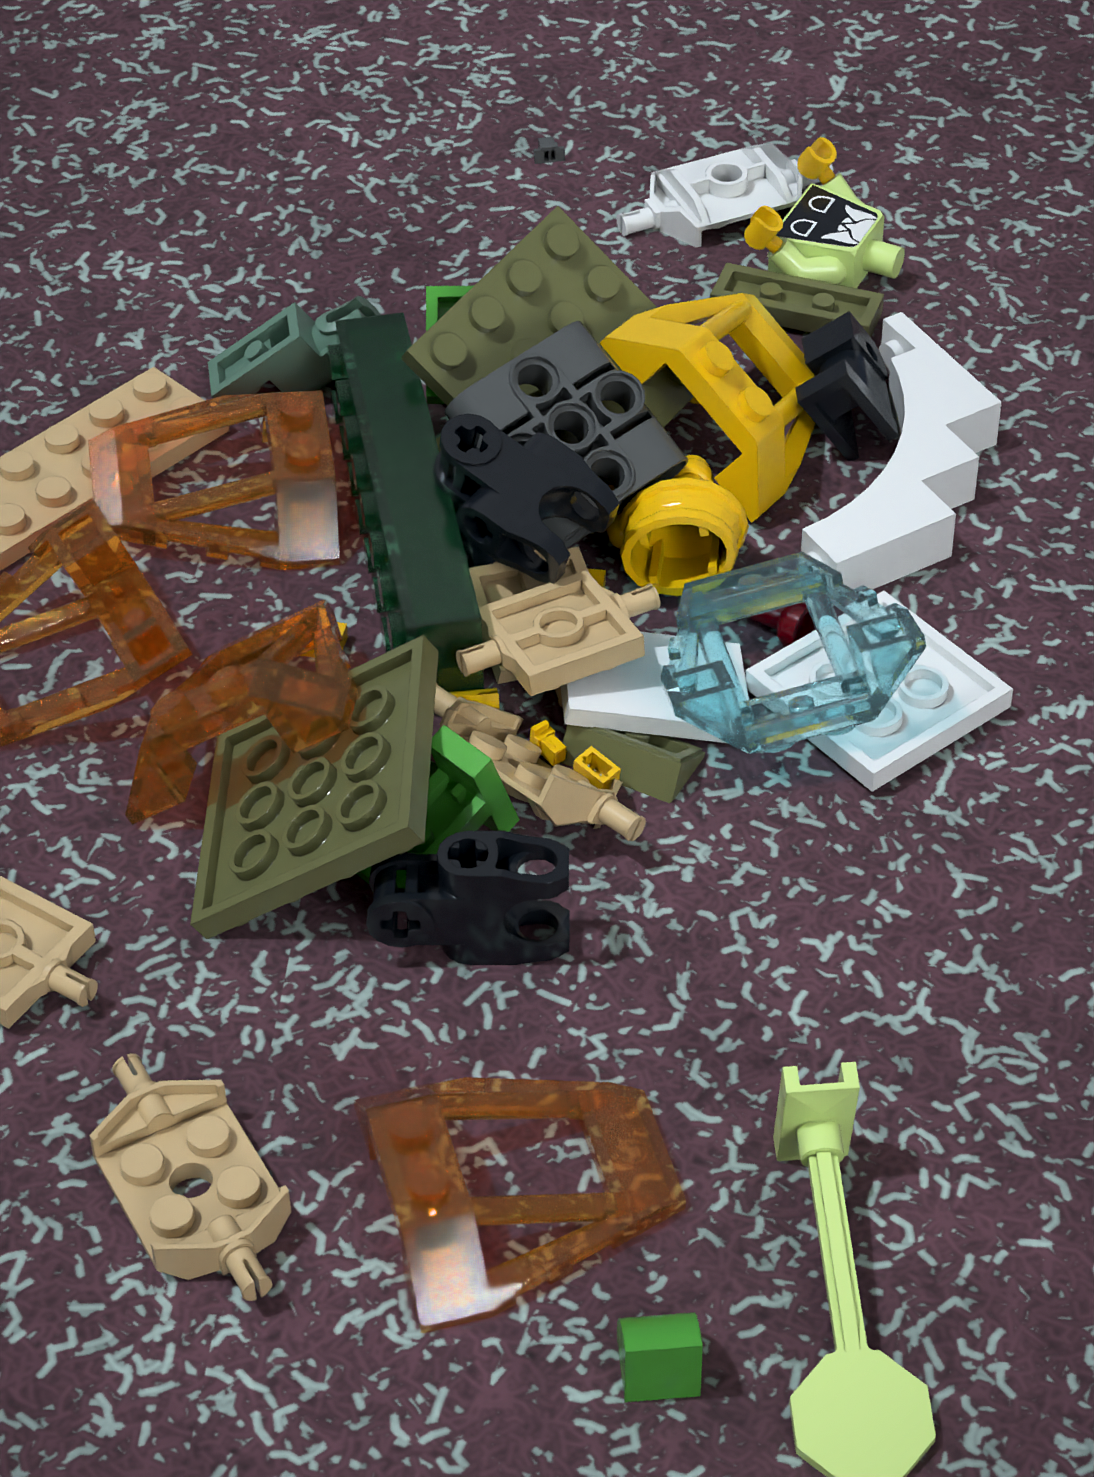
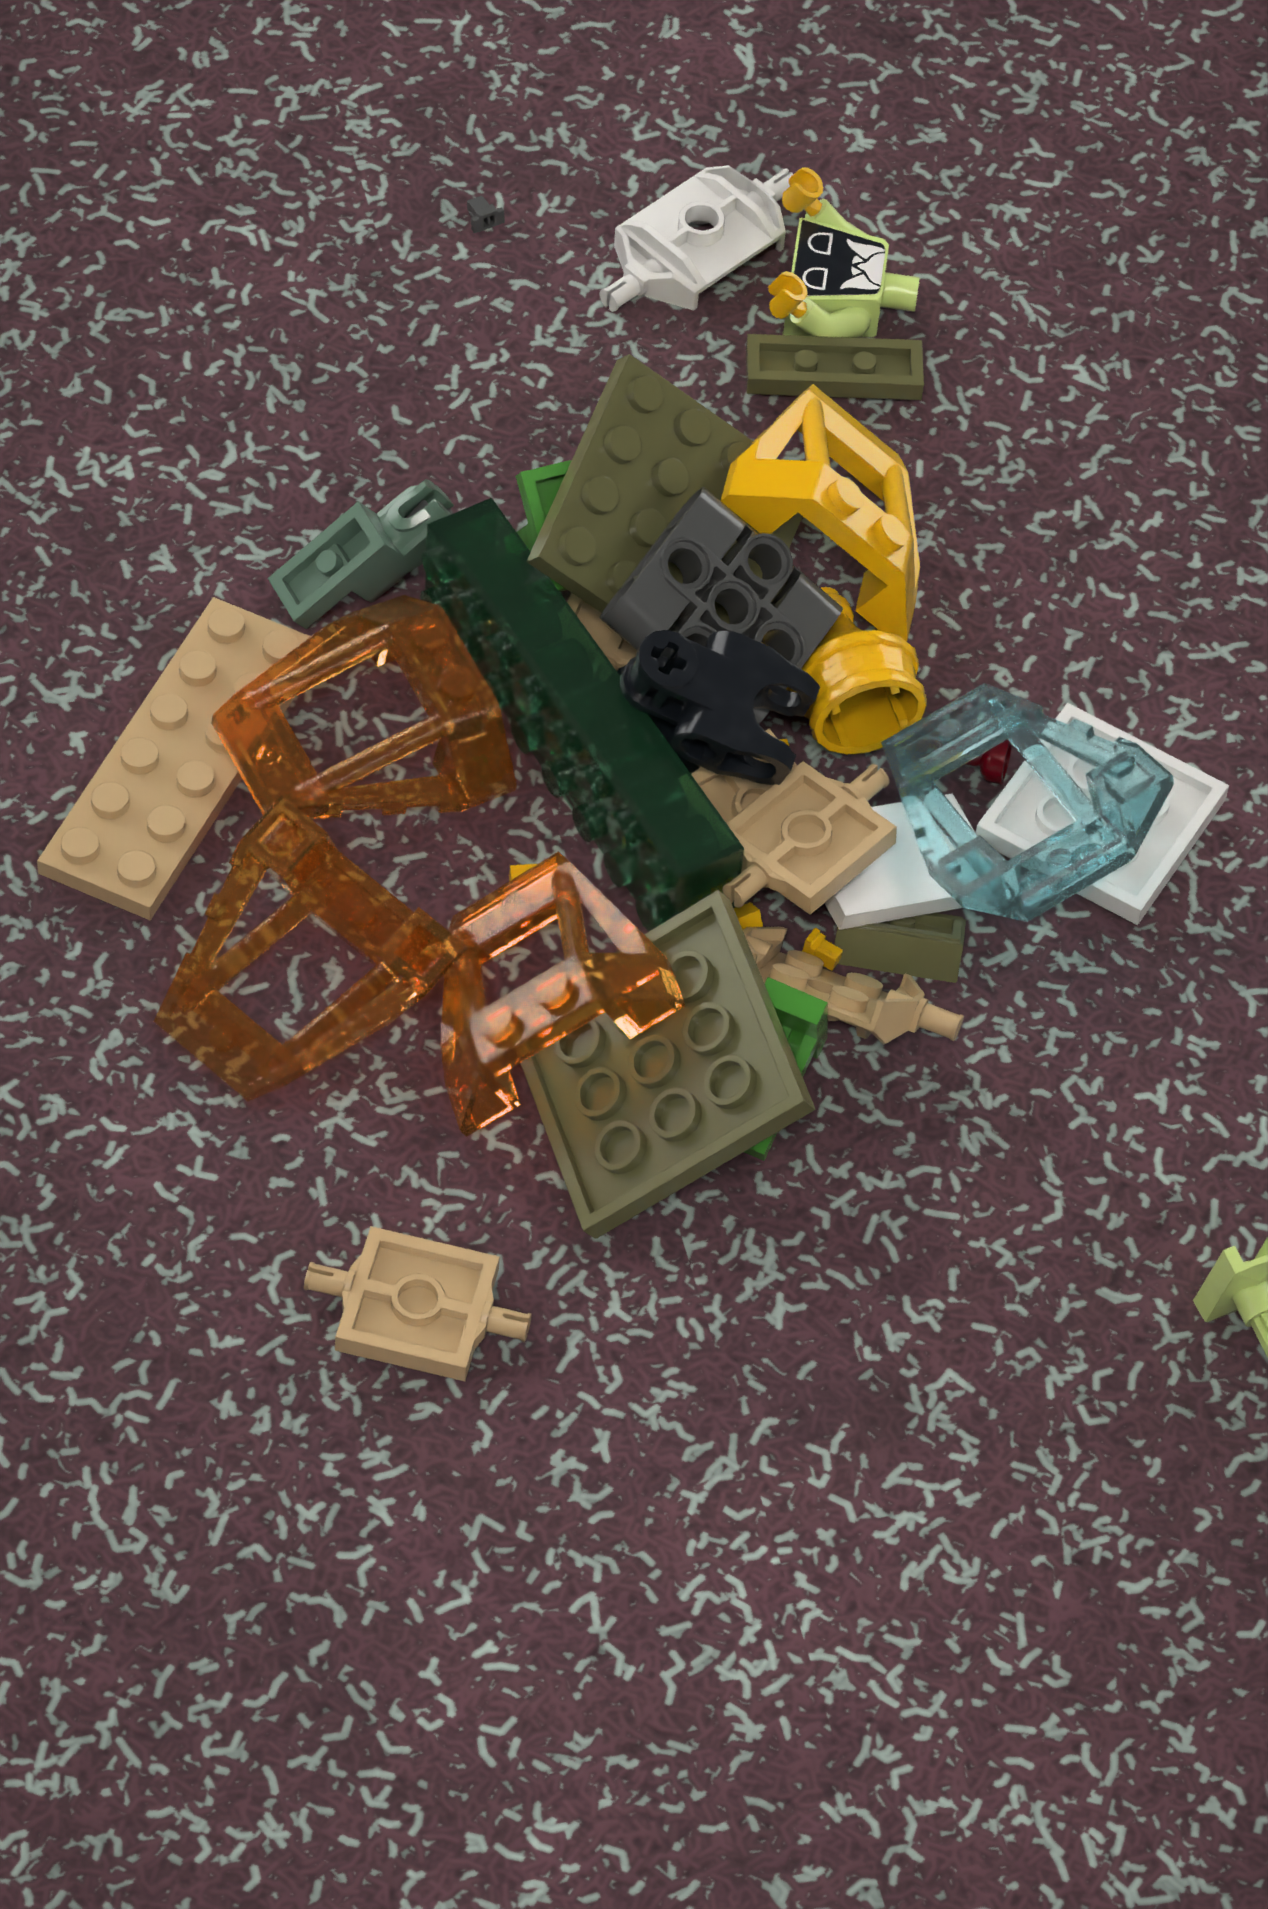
camera: 25 degrees left, 10 degrees up
(183, 1133) = (687, 1441): tan plate -> none
(441, 1220) = (977, 1498): clear orange windscreen -> none
(474, 899) = (849, 1142): black piece -> none
(596, 768) = (883, 968): yellow piece -> none
(660, 1356) = (1195, 1533): bright green brick -> none
(847, 376) = (936, 455): black piece -> none
(907, 511) = (1036, 487): white arch -> none

